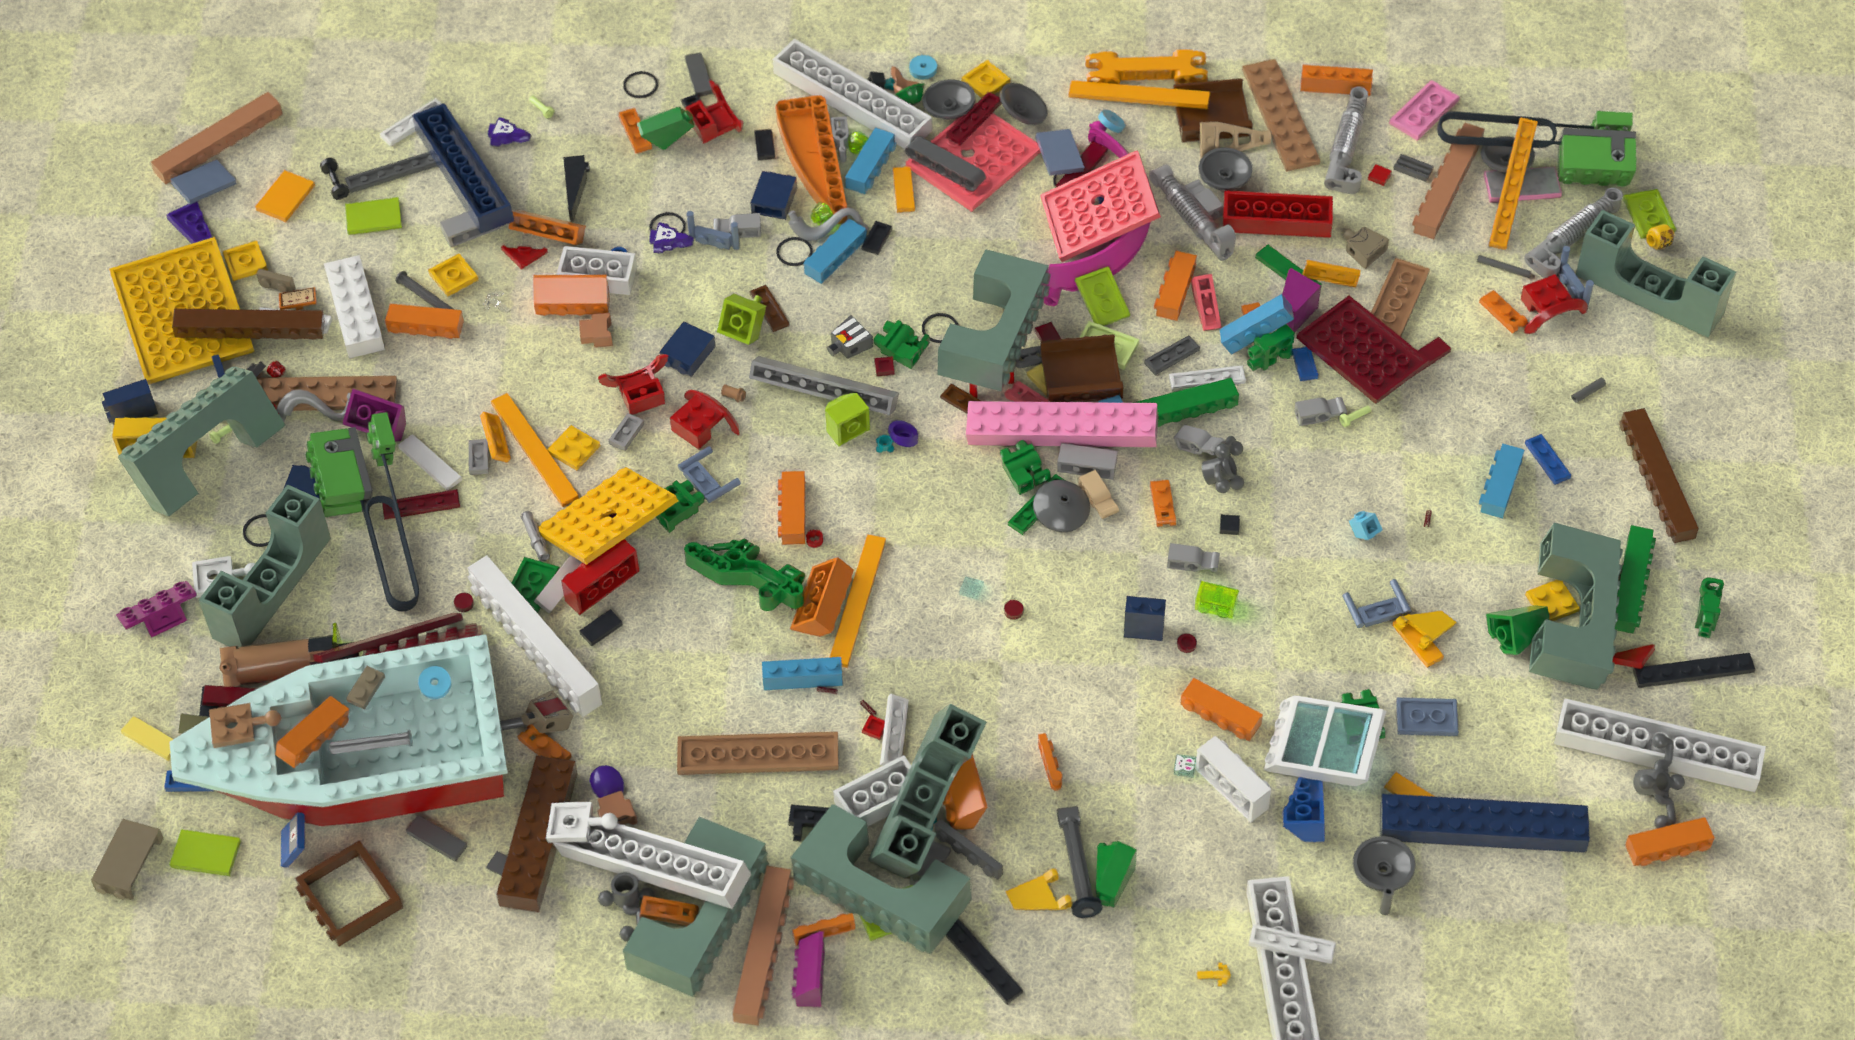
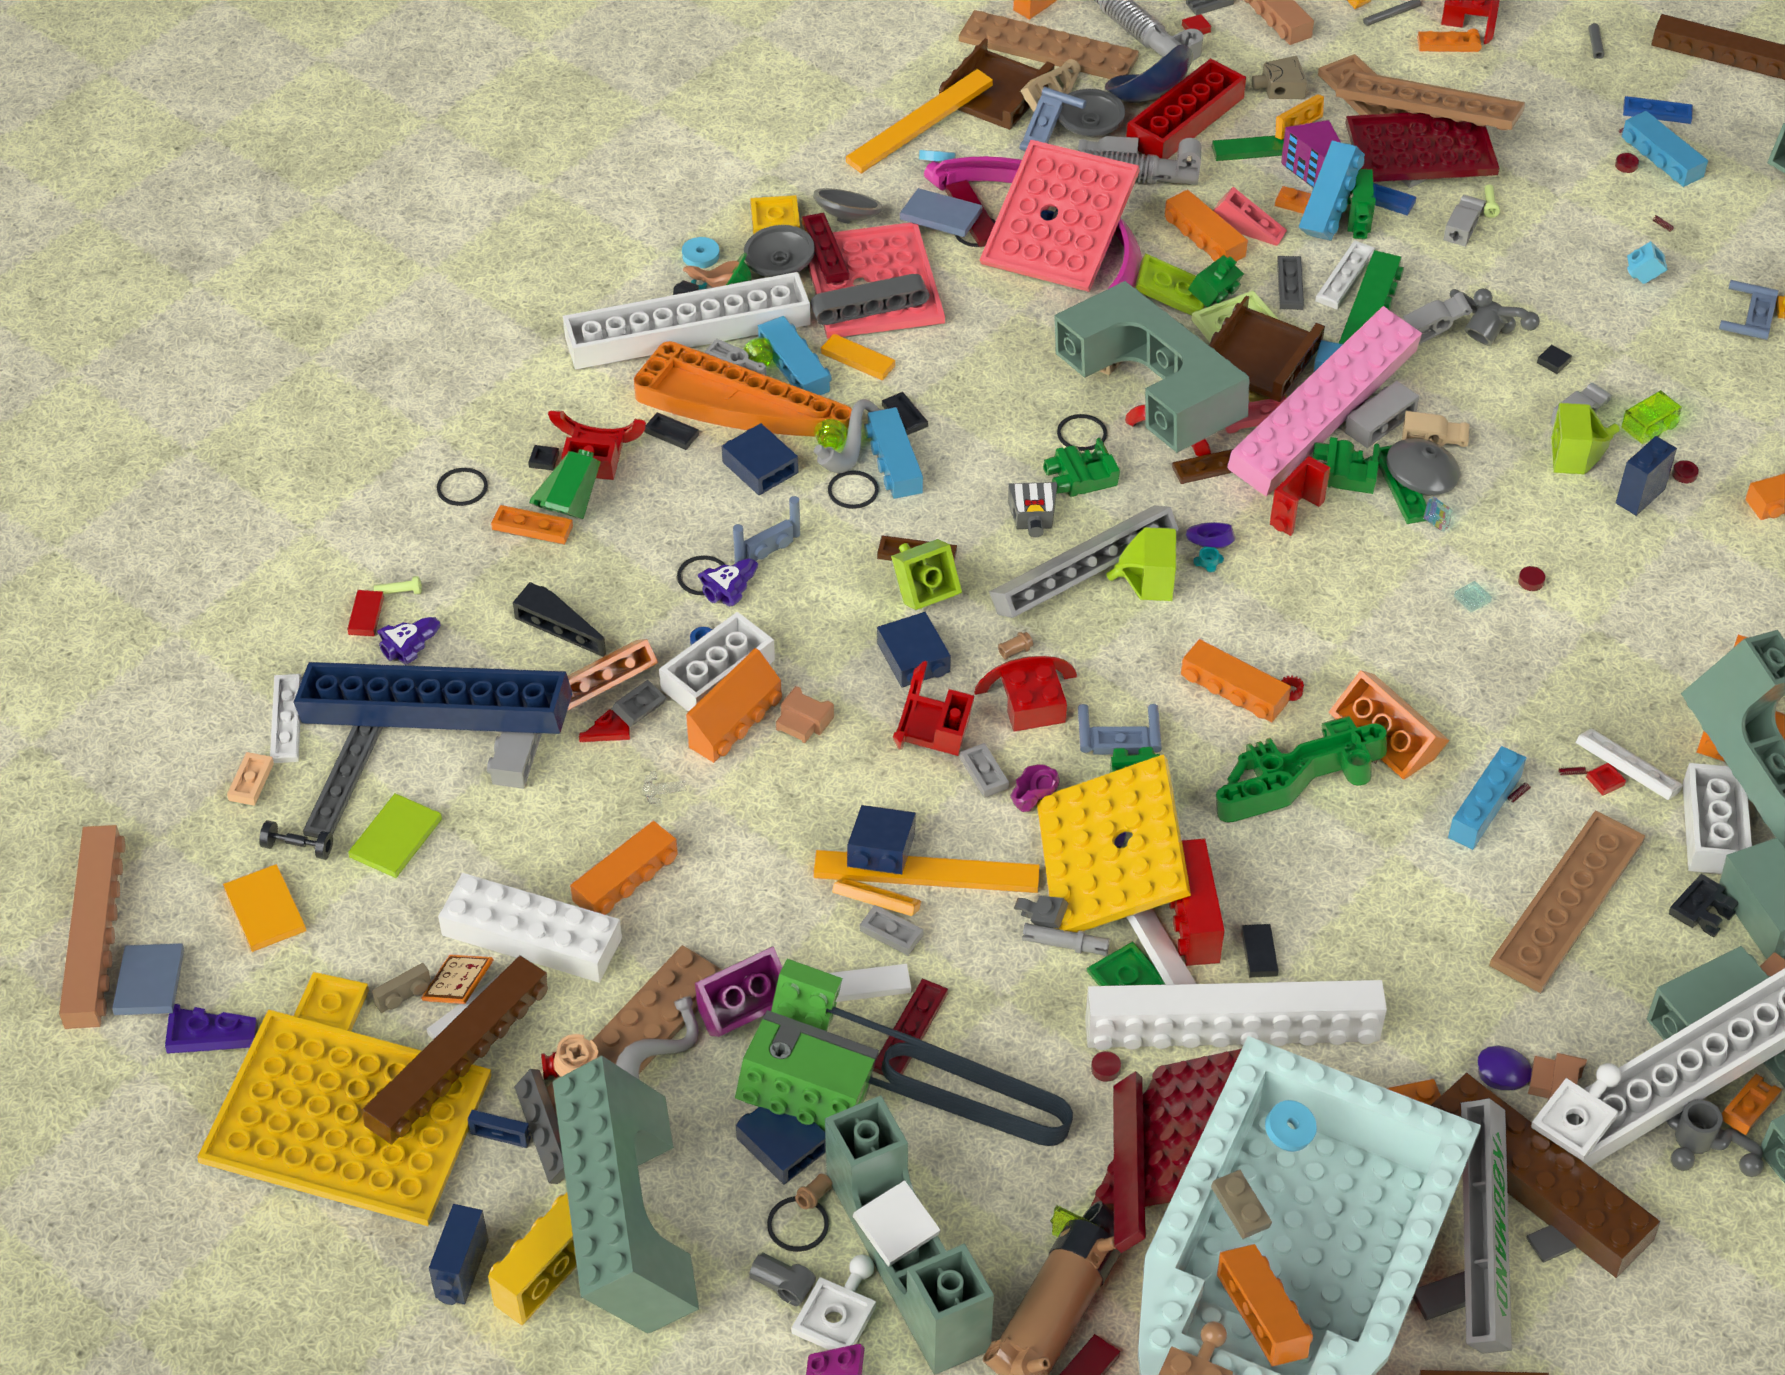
camera: 55 degrees left, 5 degrees down
(220, 543) = (789, 1282): none -> dark grey piece
(270, 561) = (896, 1223): none -> white tile
(280, 373) = (573, 1053): none -> light nougat wheel
(359, 134) = (250, 778): none -> light nougat plate
(371, 743) = (1342, 1242): axle -> none
(419, 290) = (575, 849): dark grey axle -> none
(453, 275) = (577, 805): yellow plate -> none
(468, 818) = (1487, 1231): none -> light grey brick
(512, 105) = (365, 613): none -> red tile
(531, 414) = (881, 839): none -> dark blue brick
(542, 255) = (638, 703): none -> dark grey plate
(543, 514) = (1046, 912): none -> dark grey plate
(547, 713) = (1362, 1060): dark tan torso -> none
(573, 447) = (959, 832): yellow plate -> none
(630, 459) = (1034, 785): none -> magenta hair
(698, 74) = (505, 429): dark grey tile -> none
(748, 225) = (772, 509): light grey piece -> none
(858, 599) = (1461, 737): light orange tile -> none
(884, 366) = (1095, 502): dark red tile -> none
(966, 450) = (1305, 482): none -> red panel
(1024, 534) = (1438, 514): none -> clear light blue tile
(1126, 316) = (1216, 281): none -> green brick
(1149, 568) = (1578, 438): none -> lime piece
(1162, 502) = (1484, 392): orange plate -> none
(1177, 67) = (908, 78): light orange piece -> none
(1192, 152) = (1046, 115): none -> sand blue plate
(1283, 179) = (1155, 80): none -> dark blue piece
(1405, 328) = (1430, 100): none -> medium nougat plate
(1471, 469) = (1627, 163): none -> dark red tile

